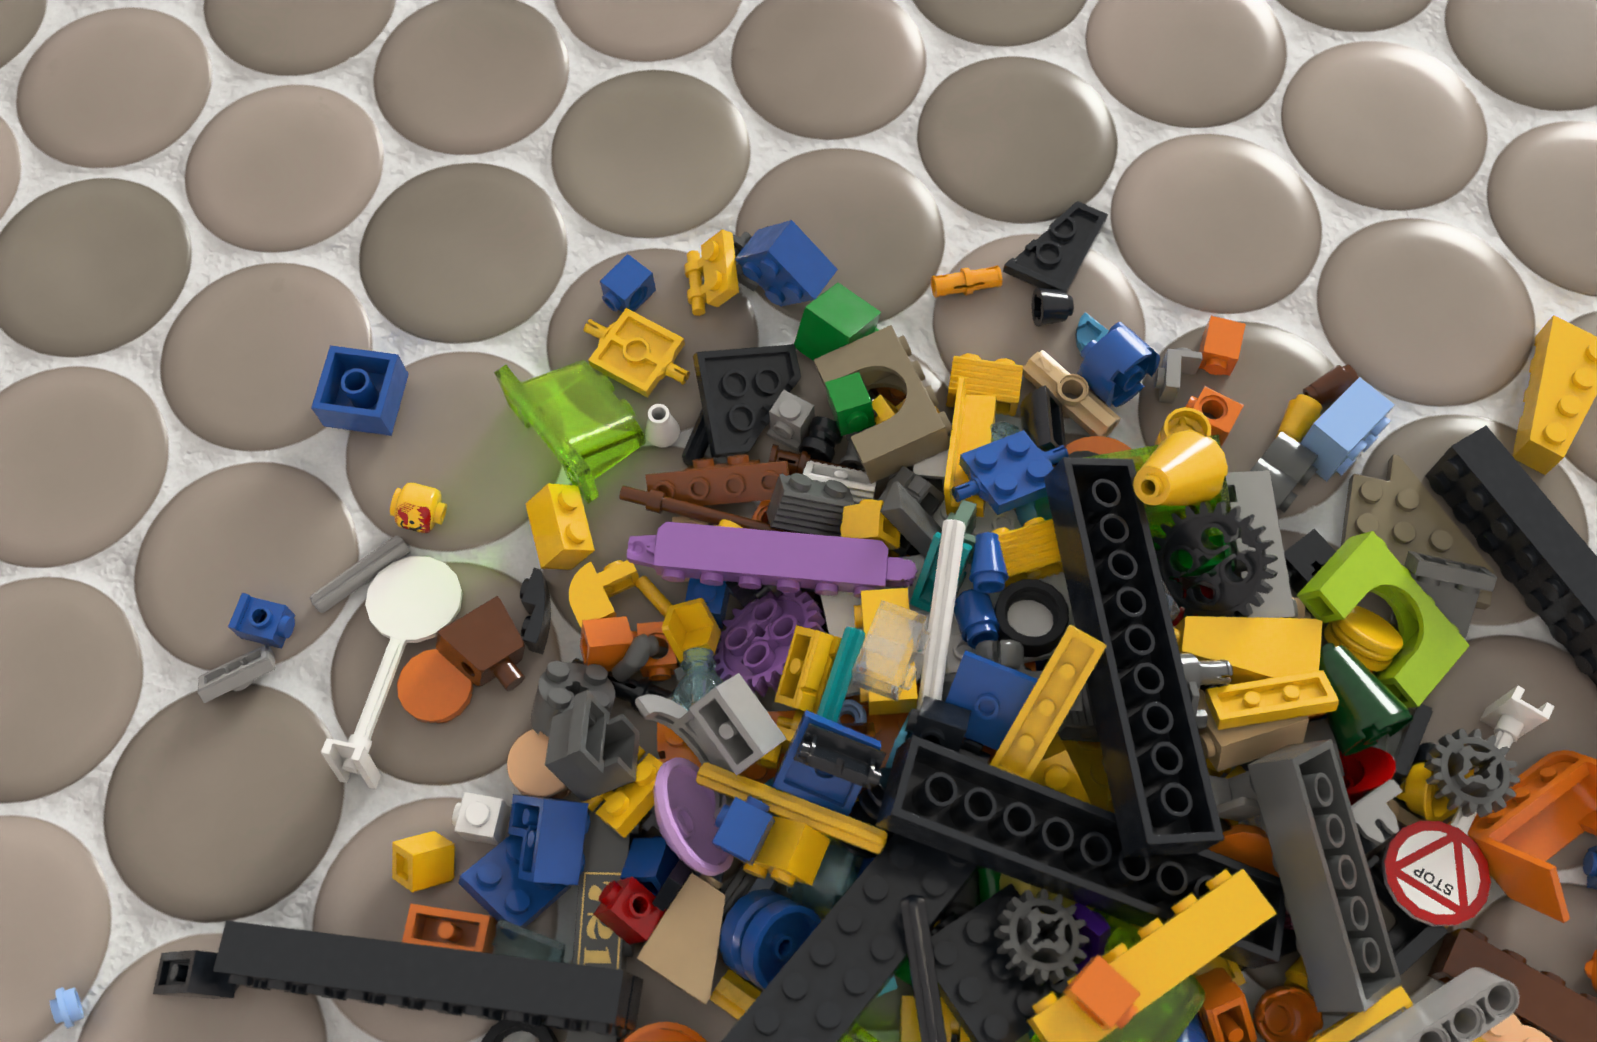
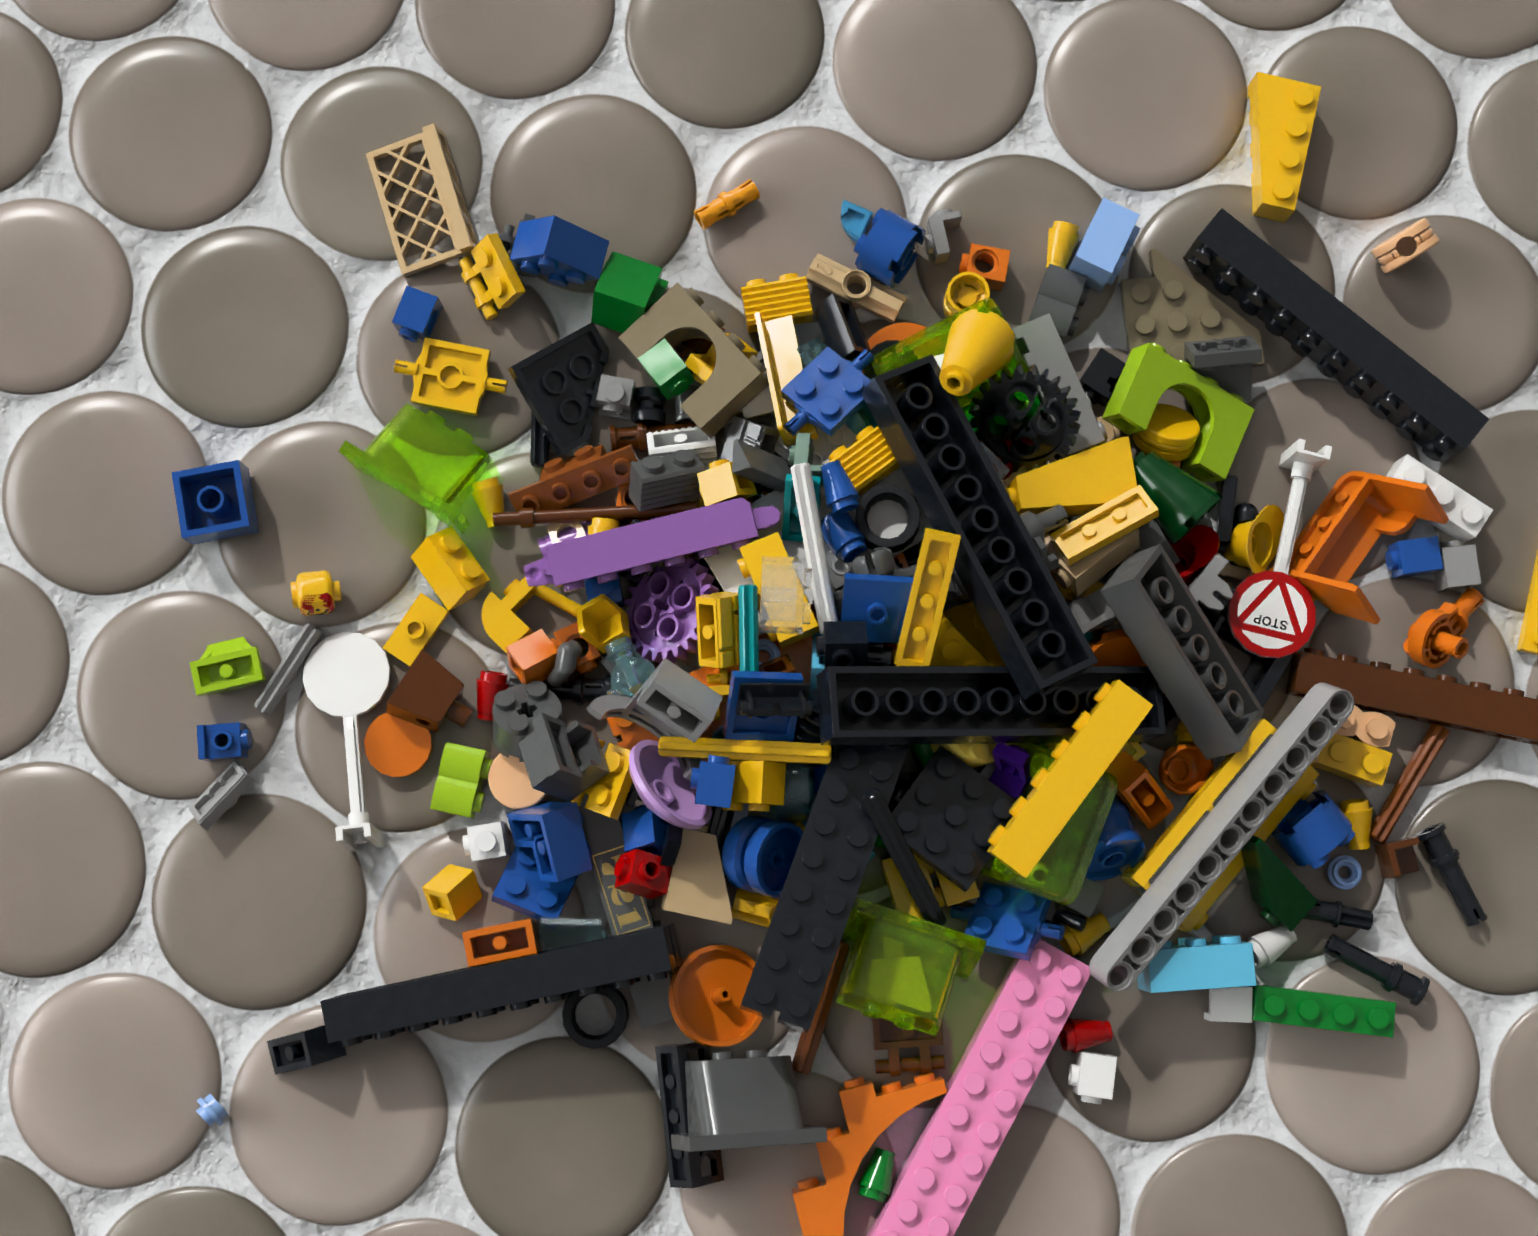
camera: 25 degrees left, 15 degrees up
(299, 552) = (227, 667): none -> lime slope
(480, 745) = (461, 780): none -> lime brick
(501, 577) = (416, 629): none -> yellow plate
(537, 602) = (456, 640): black slope -> none
(547, 654) = (487, 687): none -> red cone
(626, 471) = (489, 498): none -> yellow cone
(661, 426) = (508, 448): white cone -> none
(701, 185) = (445, 184): none -> tan fence
(1051, 306) = (811, 205): black hat -> none
(1055, 952) = (966, 777): dark grey gear -> none
(1060, 251) = (801, 148): black wing -> none
(1103, 994) = (1039, 816): orange brick -> none
(1221, 345) = (974, 194): orange brick -> none
(1332, 384) = (1082, 201): reddish brown cone -> none
(1491, 782) = (1290, 532): dark grey gear -> none

